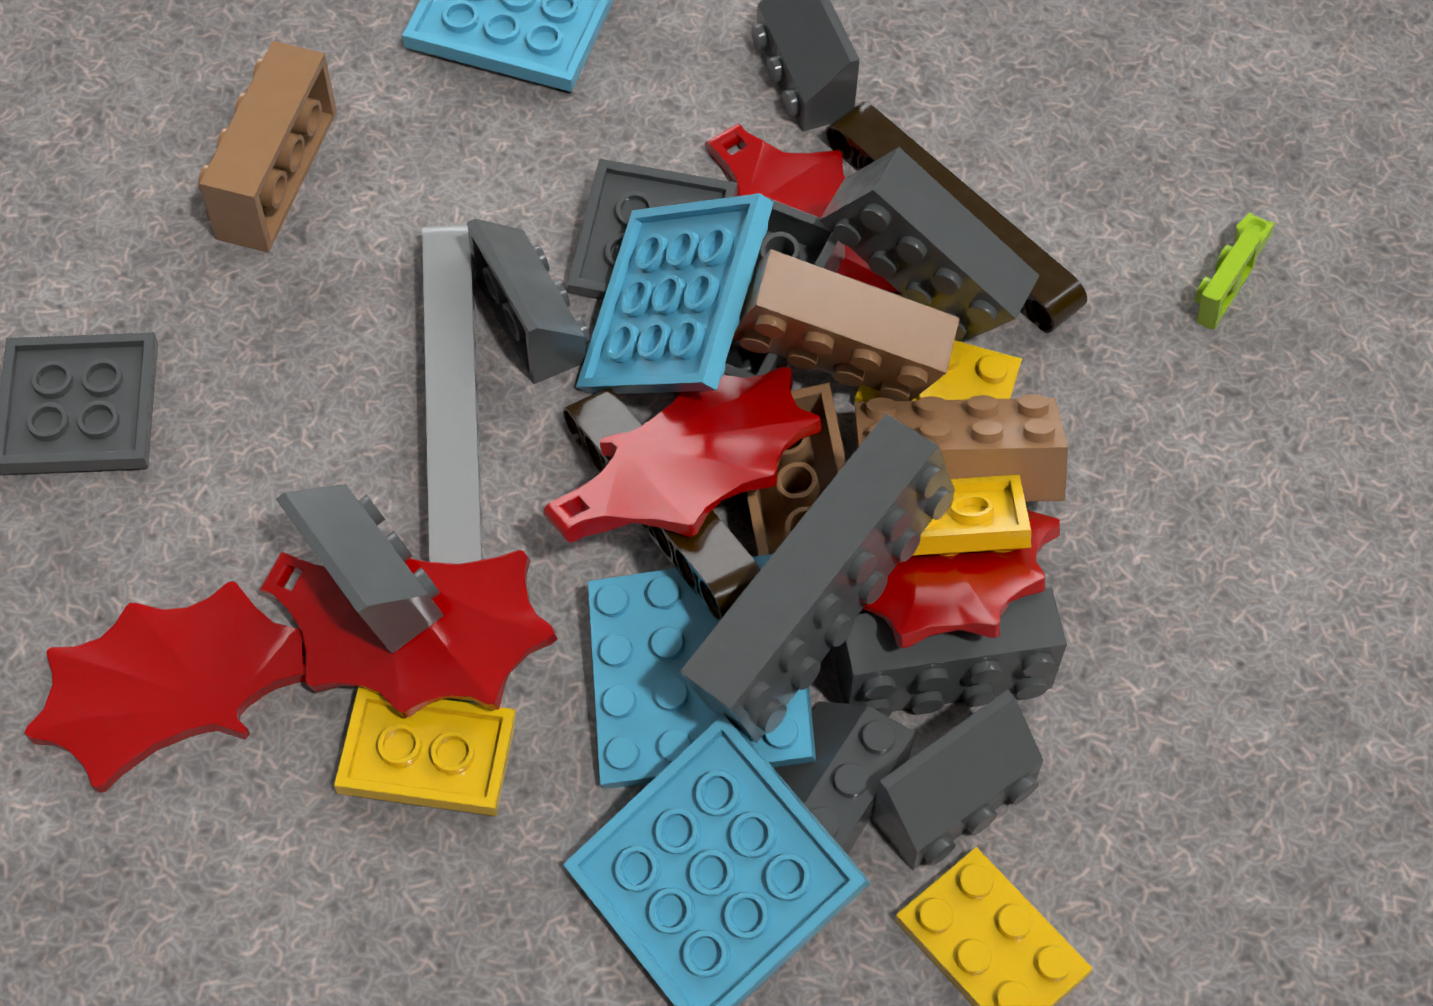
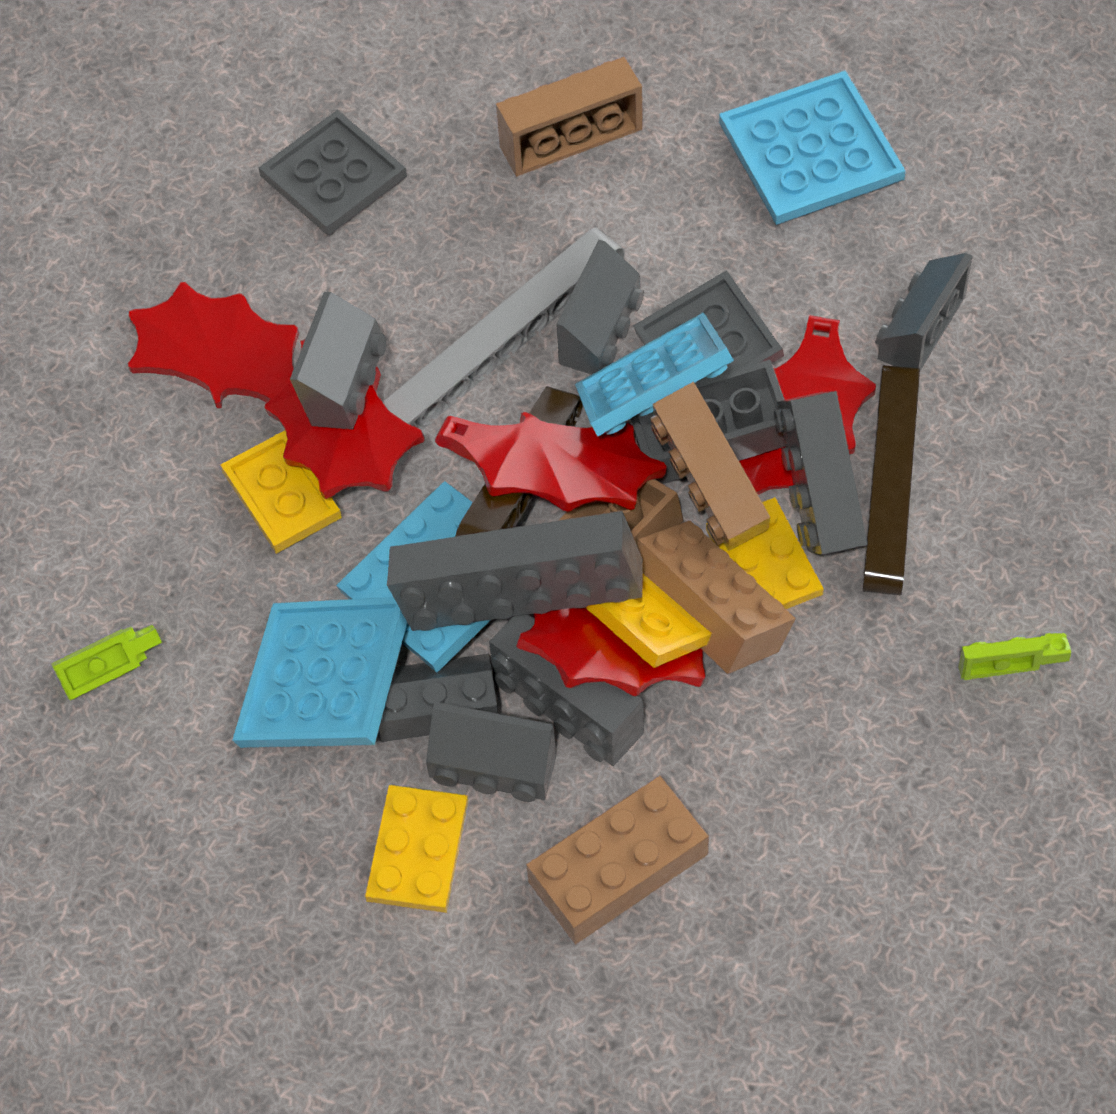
camera: 55 degrees right, 0 degrees up
(1179, 761) = (617, 859): none -> medium nougat brick

